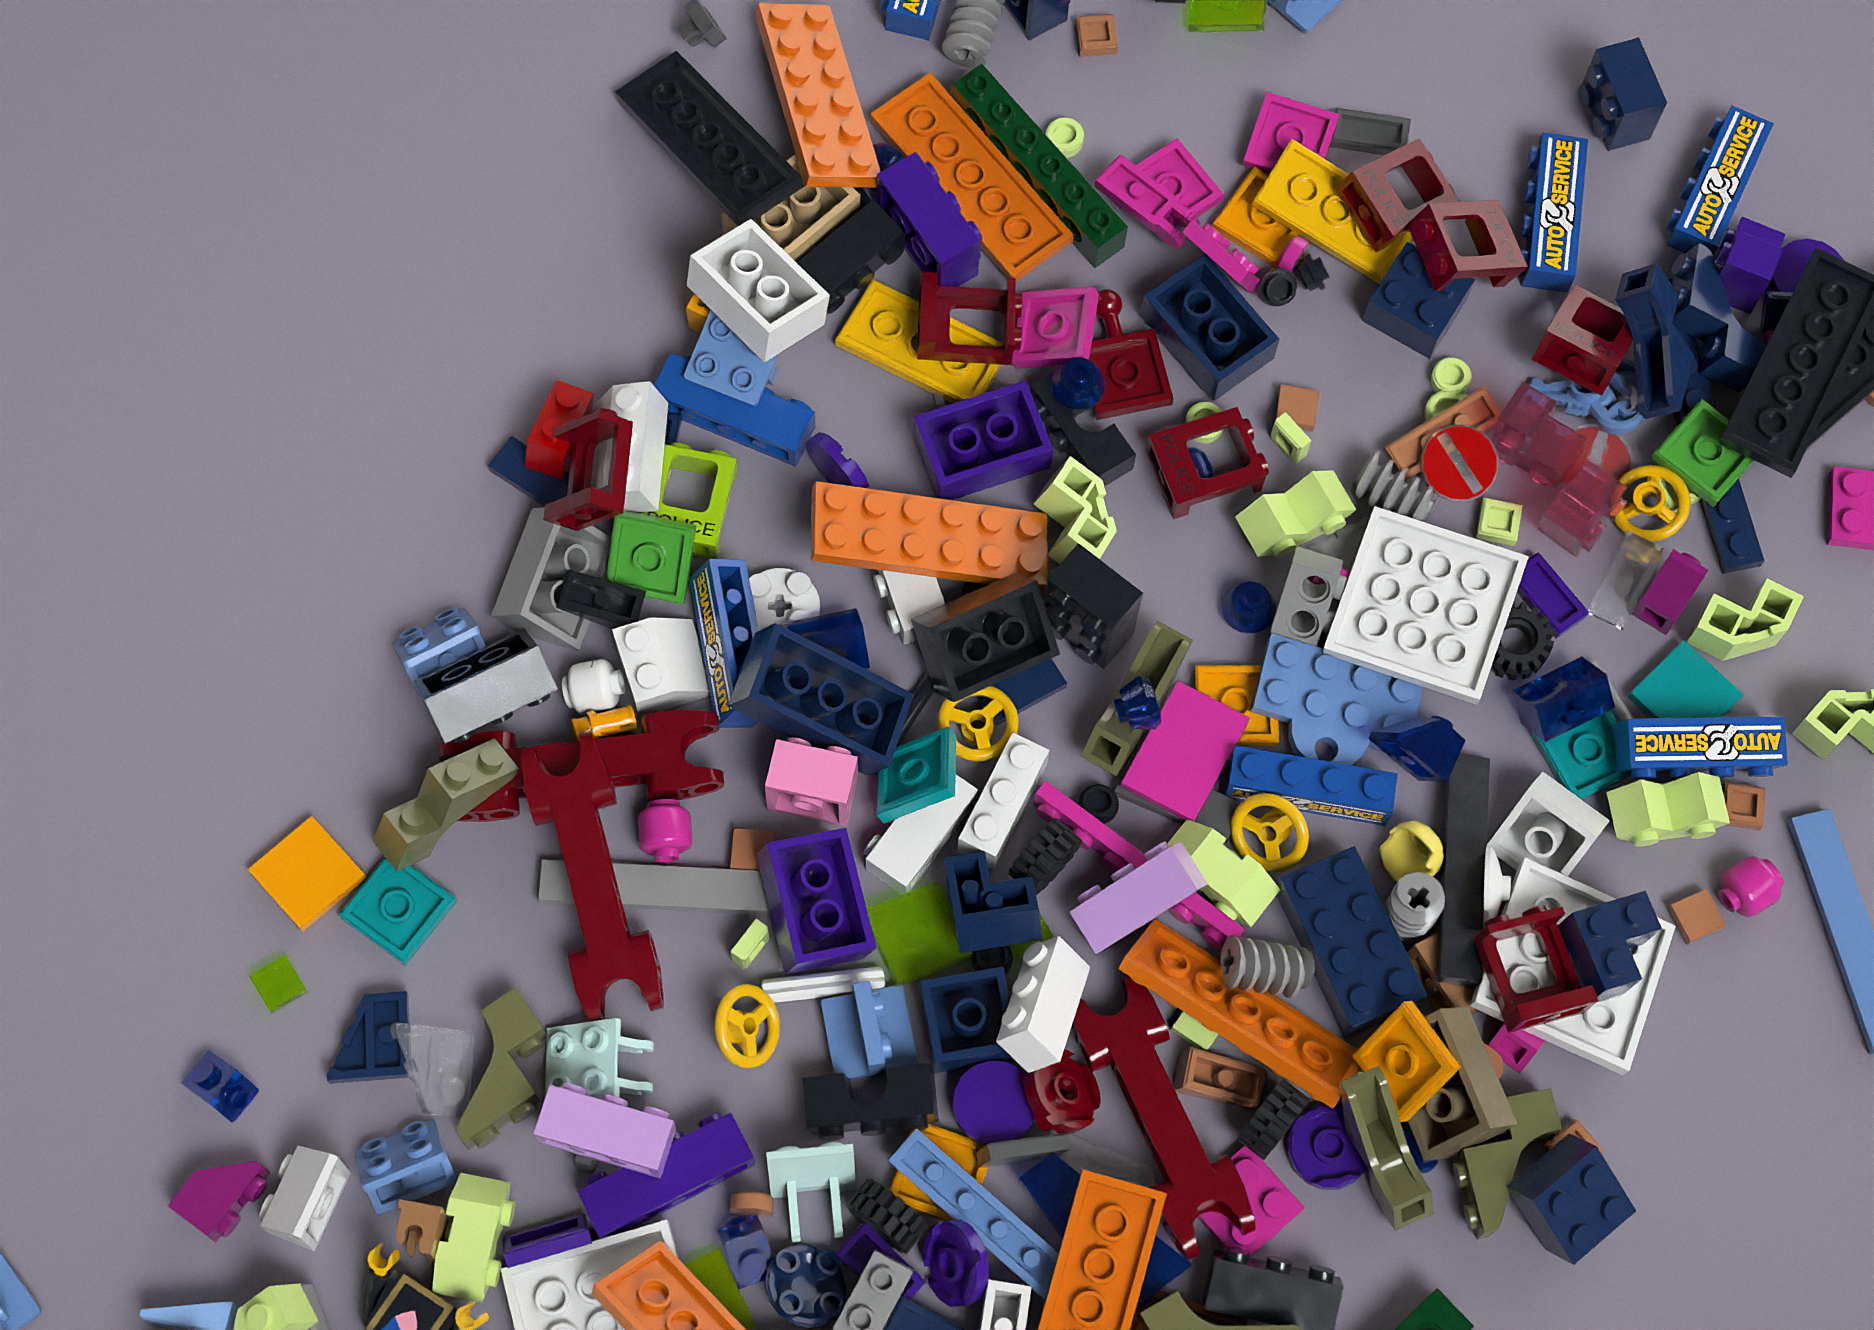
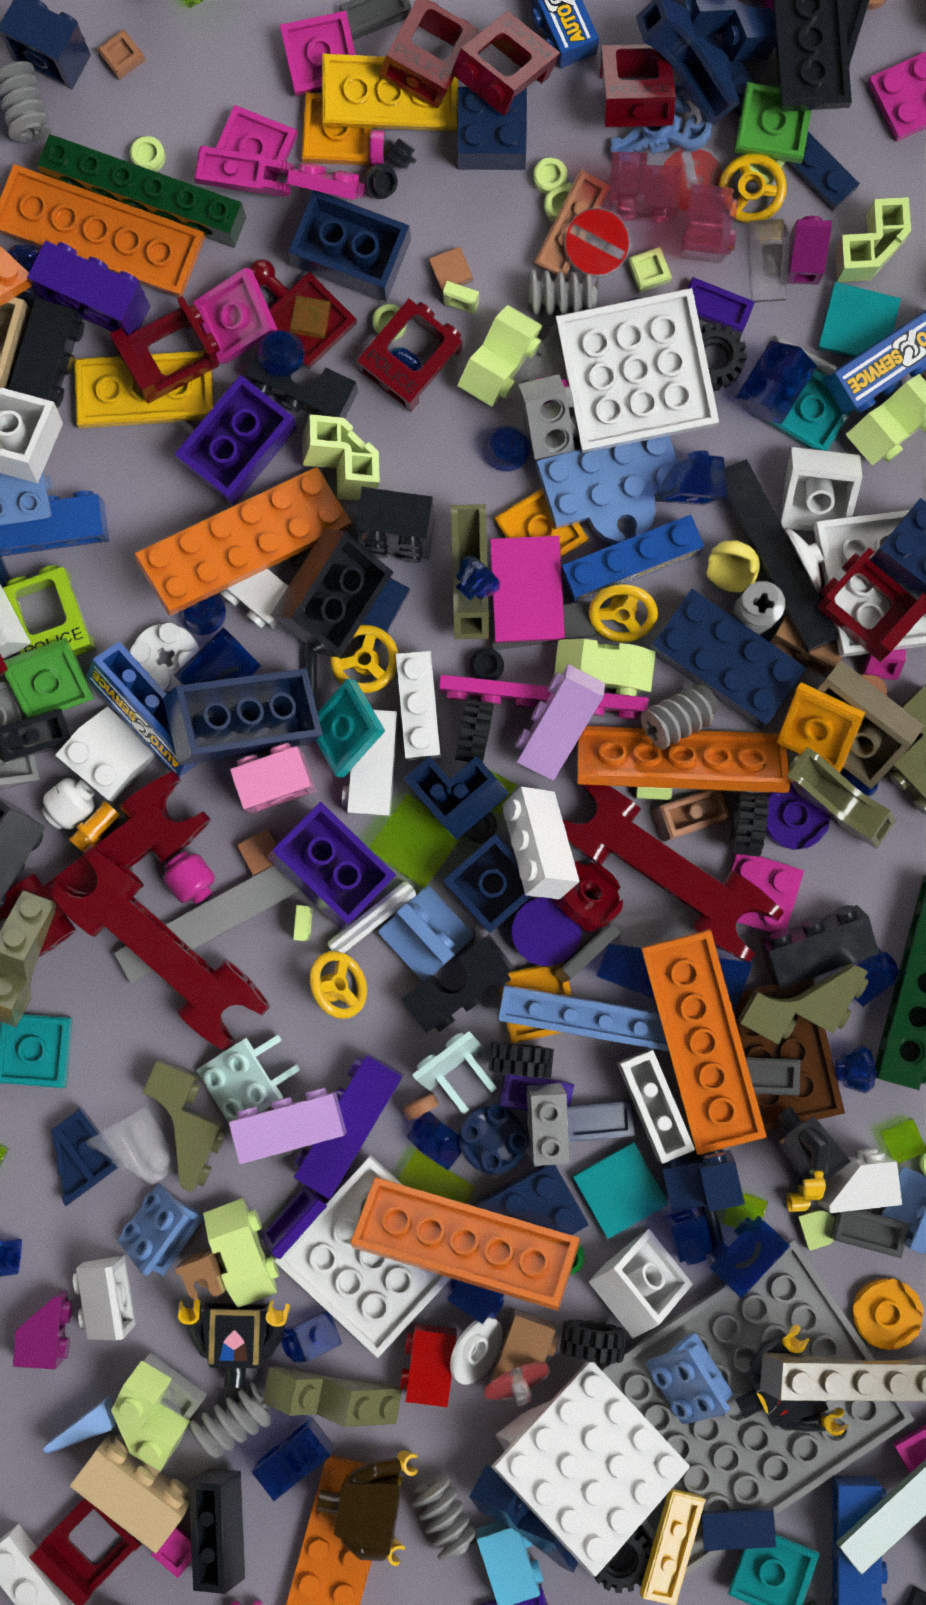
camera: 25 degrees left, 15 degrees up
(832, 465) = (136, 526): dark purple tile -> none
(844, 586) = (207, 622): none -> clear blue cone
(956, 1263) = (590, 1062): dark purple tile -> none
(1129, 369) = (310, 316): none -> clear yellow tile

